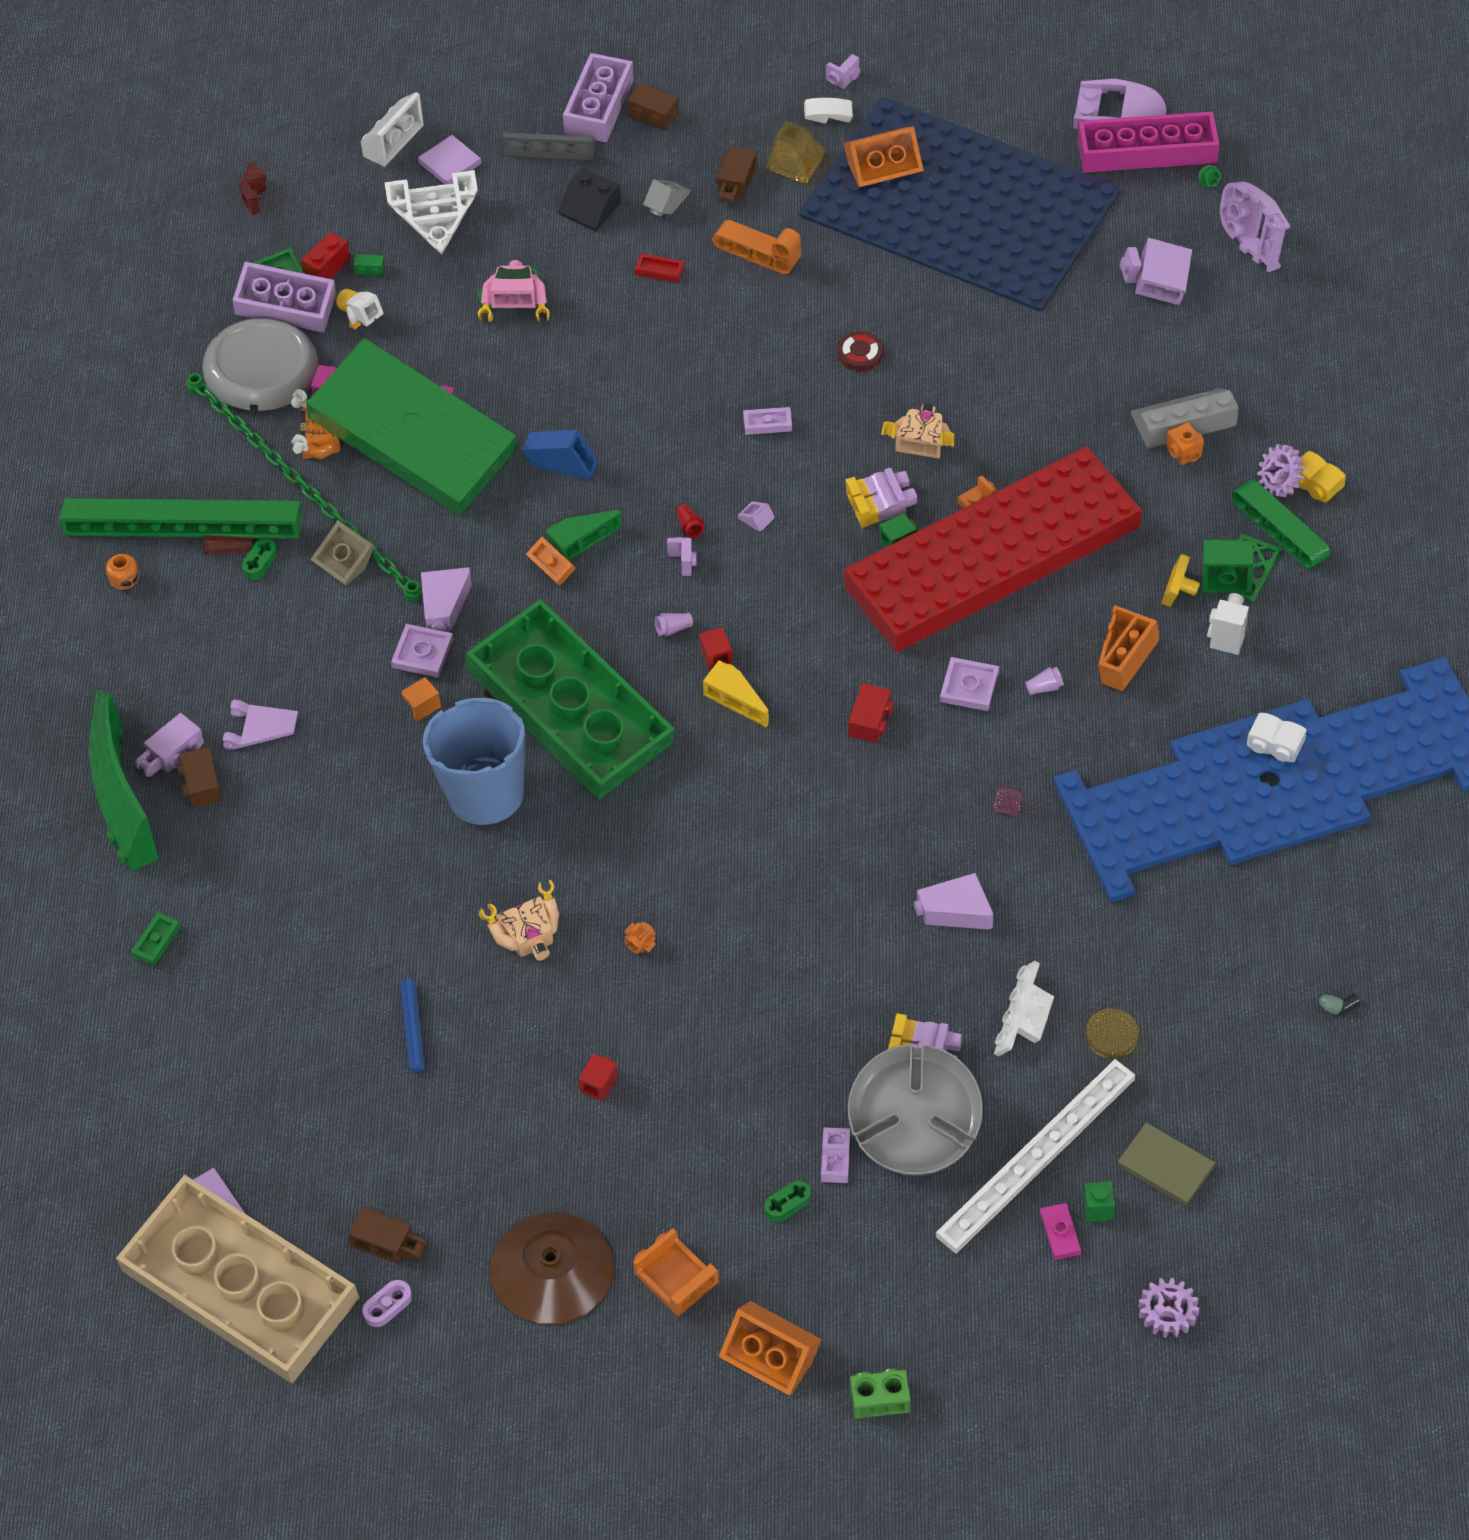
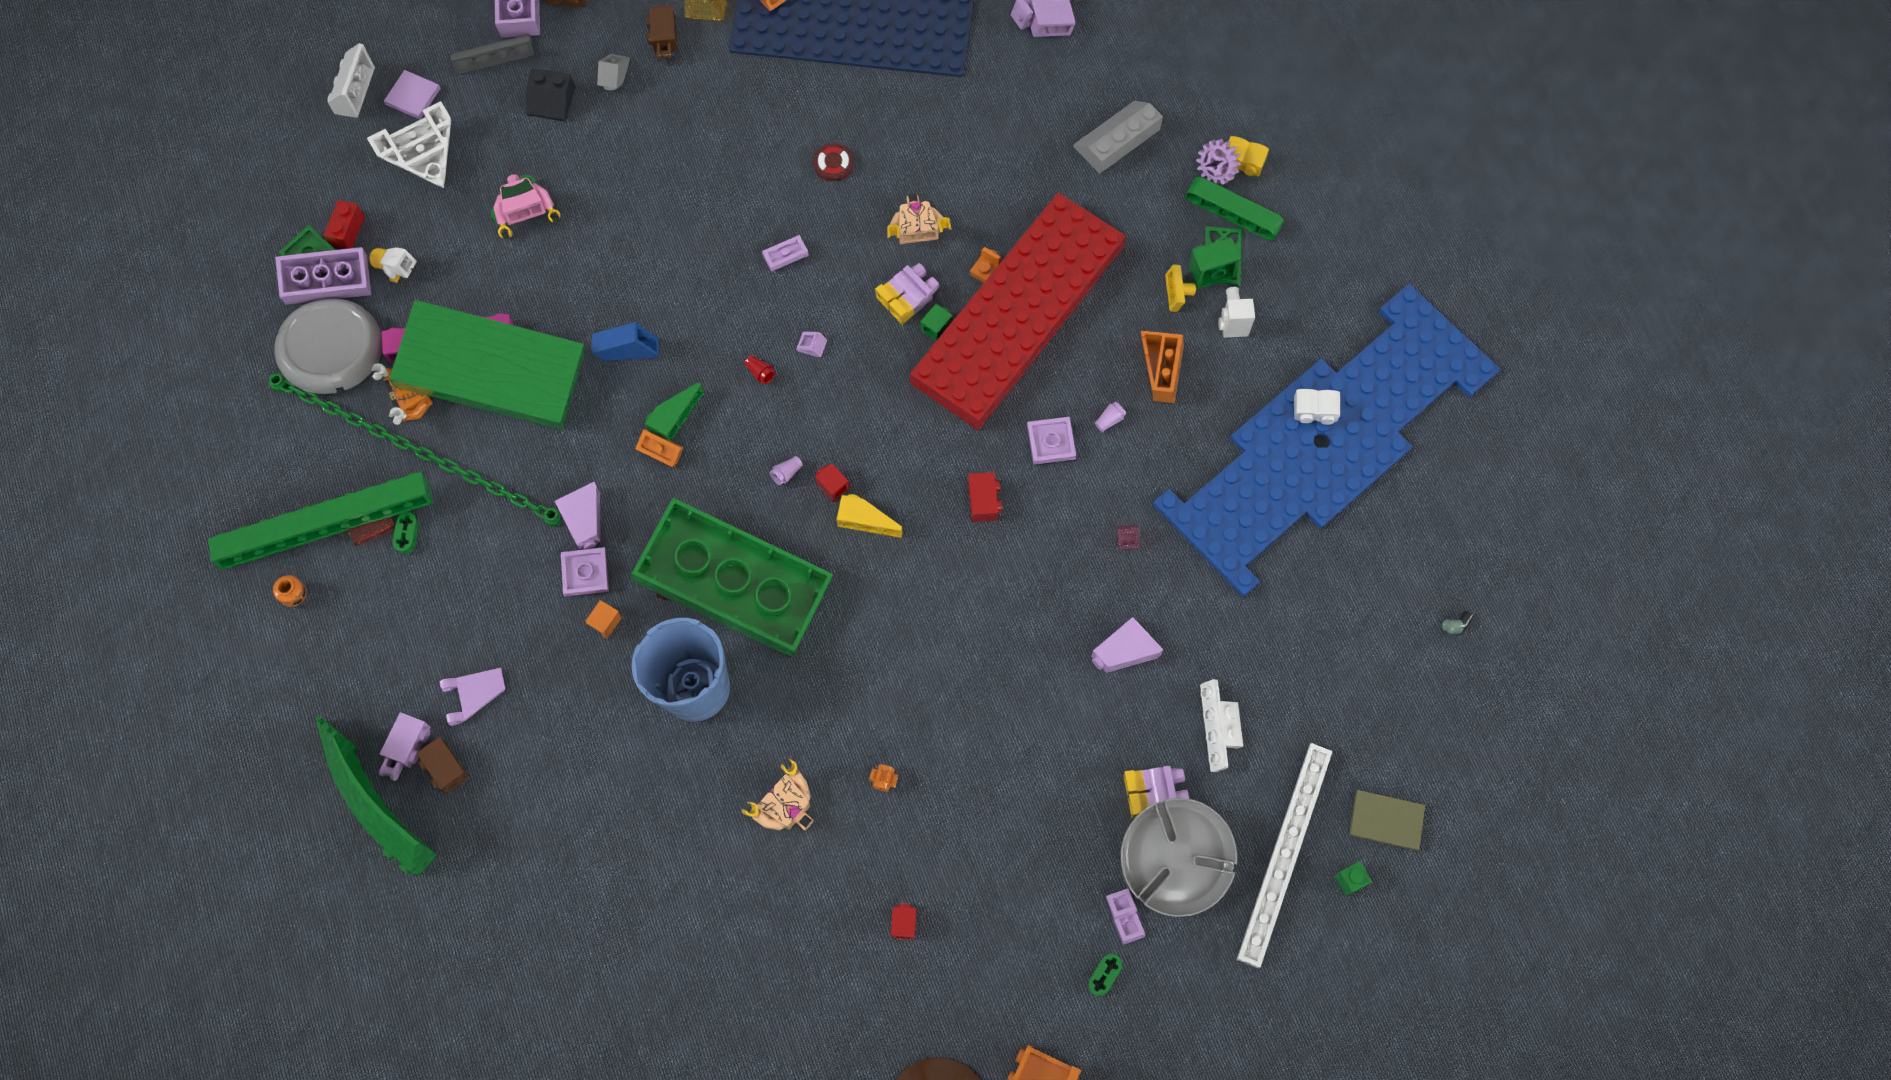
camera: 25 degrees left, 15 degrees up
(155, 939) = (468, 936): green plate -> none
(251, 186) = (247, 174): clear red slope -> none
(343, 553) = (477, 503): dark tan slope -> none
(369, 265) = (383, 217): green piece -> none
(412, 1025) = (725, 933): blue axle -> none
(659, 268) = (634, 139): red tile -> none
(682, 548) = (766, 396): lavender bracket -> none
(773, 253) = (709, 93): orange beam -> none
(1060, 1231) = (1331, 914): dark pink plate -> none
(1112, 1033) = (1295, 717): clear yellow tile -> none
(1168, 1296) = (1451, 943): lavender gear -> none
(1185, 443) = (1131, 162): orange brick -> none

